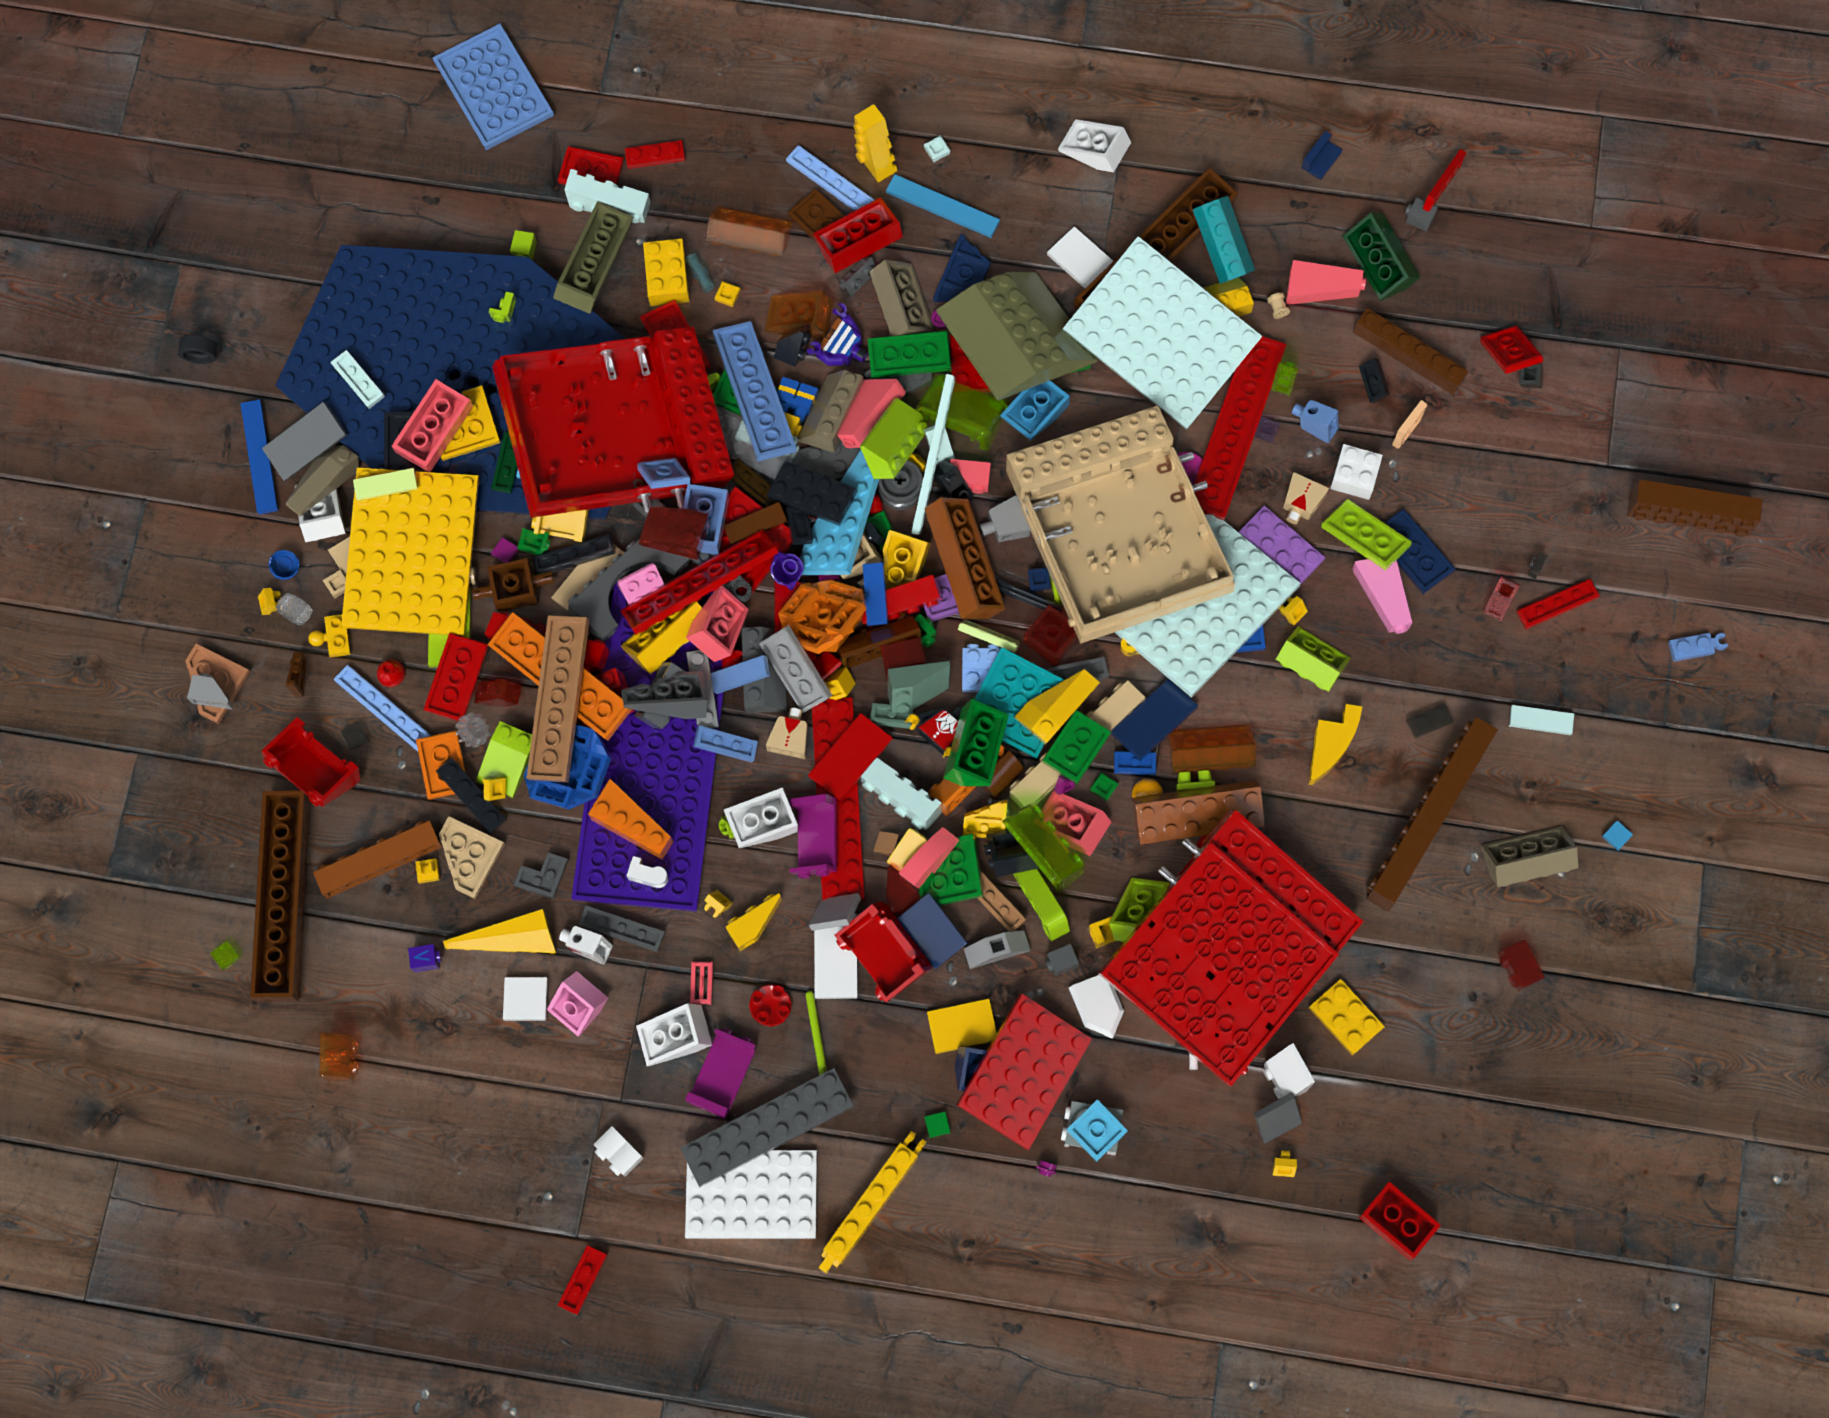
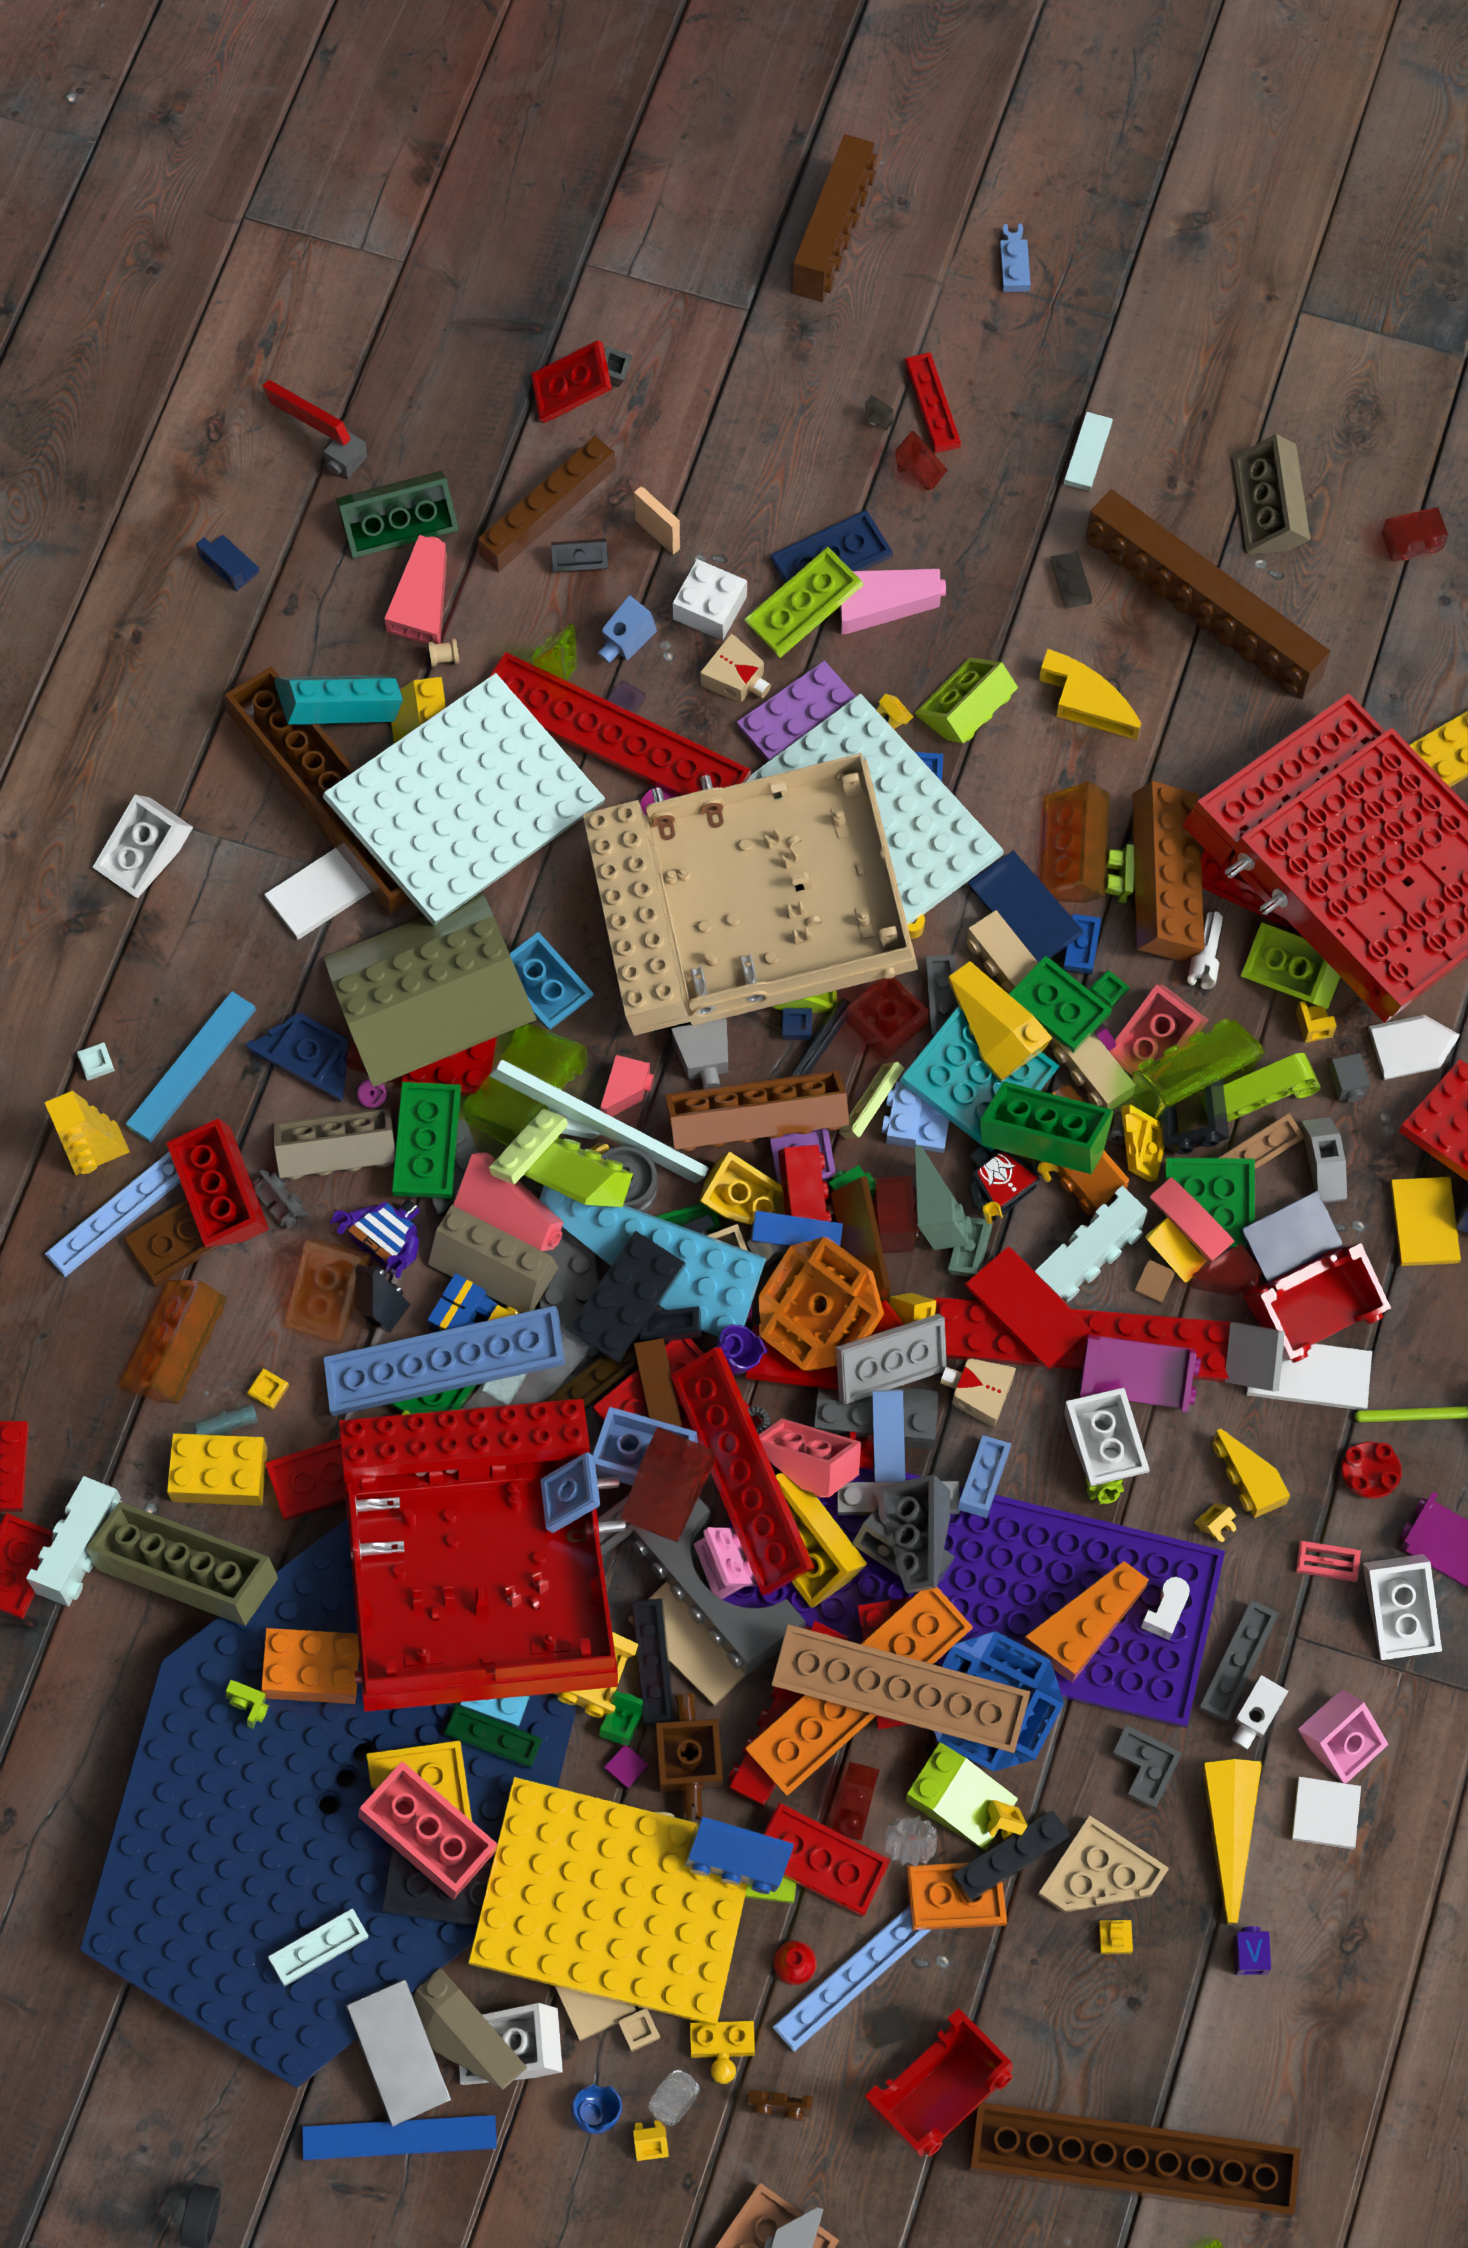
camera: 85 degrees left, 5 degrees down
(338, 1057) = (1393, 2094): clear orange slope -> none
(377, 859) = (1092, 2008): dark orange brick -> none
(385, 484) = (508, 1917): yellowish green tile -> none
(442, 617) = (738, 1855): none -> blue slope
(523, 244) = (127, 1680): lime brick -> none
(531, 330) = (310, 1666): none -> orange piece
(905, 411) = (528, 1146): none -> yellowish green plate
(951, 481) = (638, 1111): black slope -> none
(1134, 849) = (1204, 964): none -> white piece
(1146, 787) = (1121, 936): light orange hair -> none
(1617, 835) = (1254, 396): dark azure tile -> none

